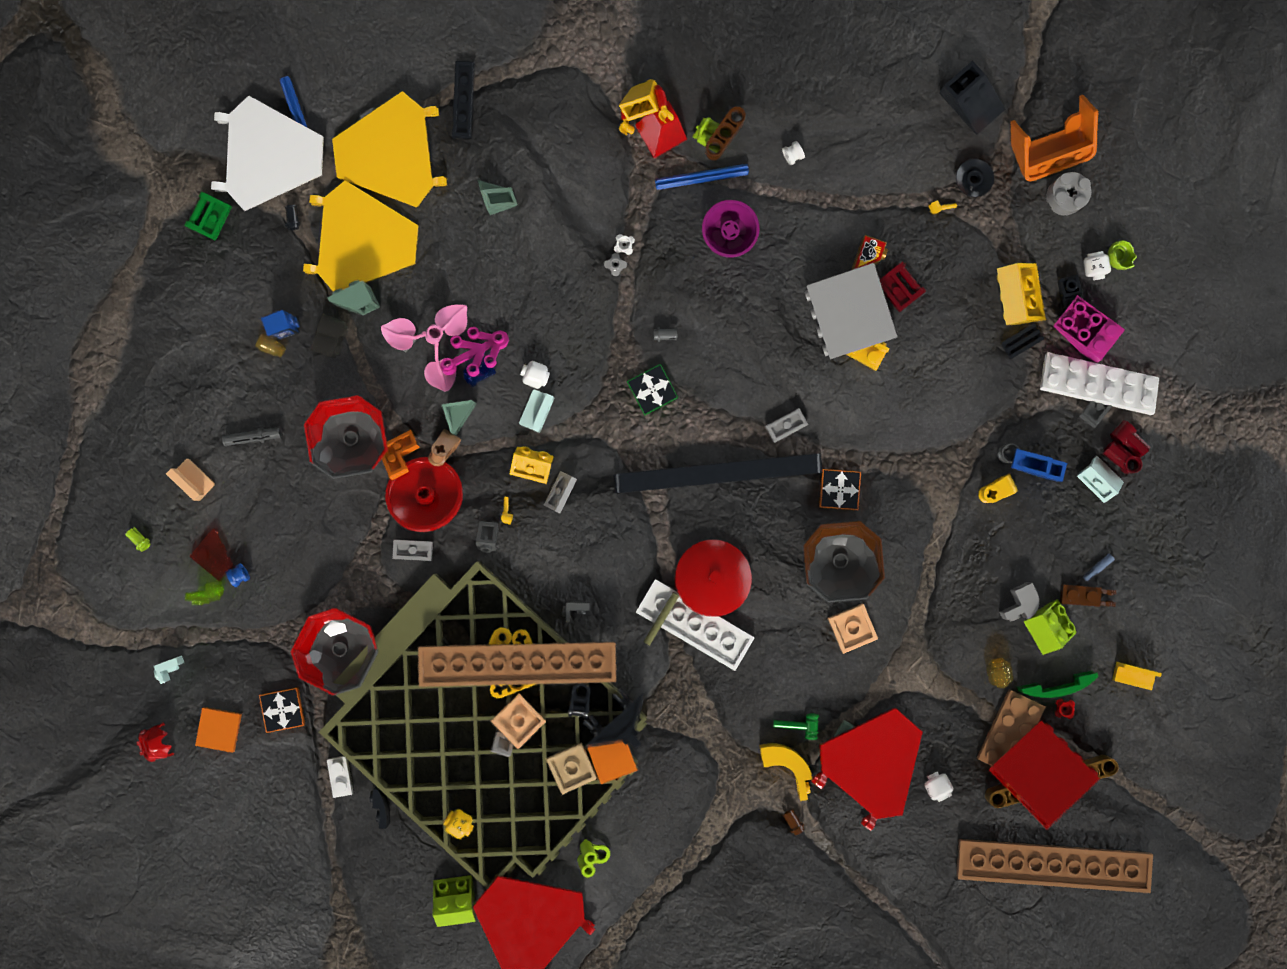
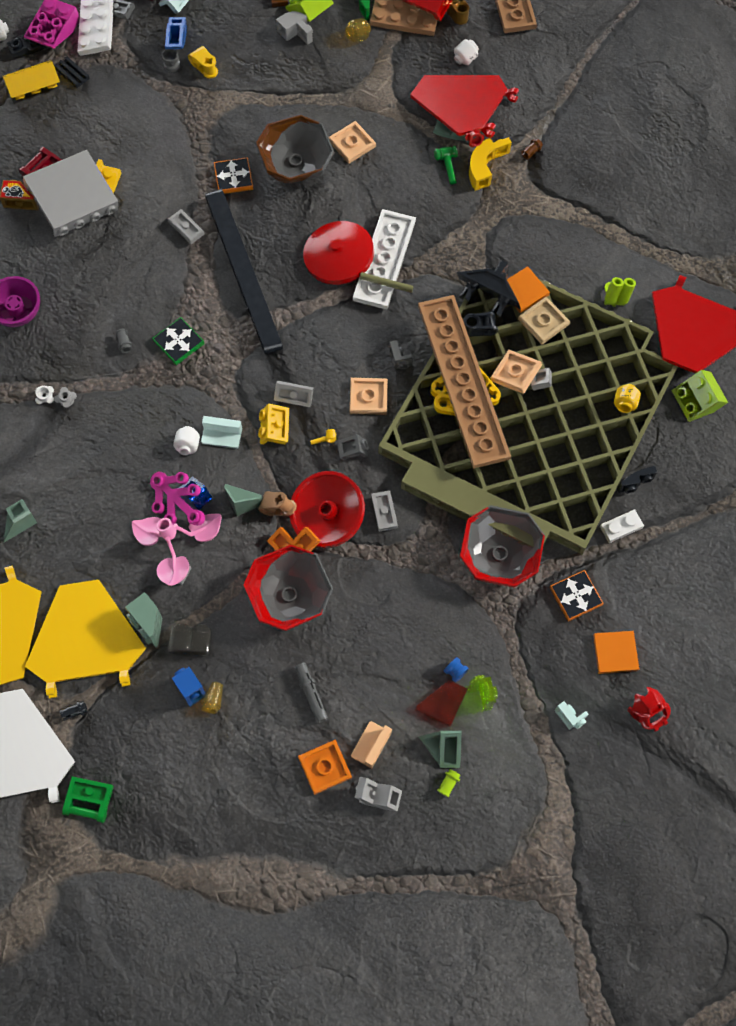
camera: 105 degrees left, 20 degrees down
(142, 473) = (378, 795): none -> light grey brick
(171, 545) = (444, 747): none -> sand green slope
(183, 432) = (325, 767): none -> orange tile
(542, 567) = (368, 396): none -> light nougat tile
(813, 762) = (477, 140): none -> red plate

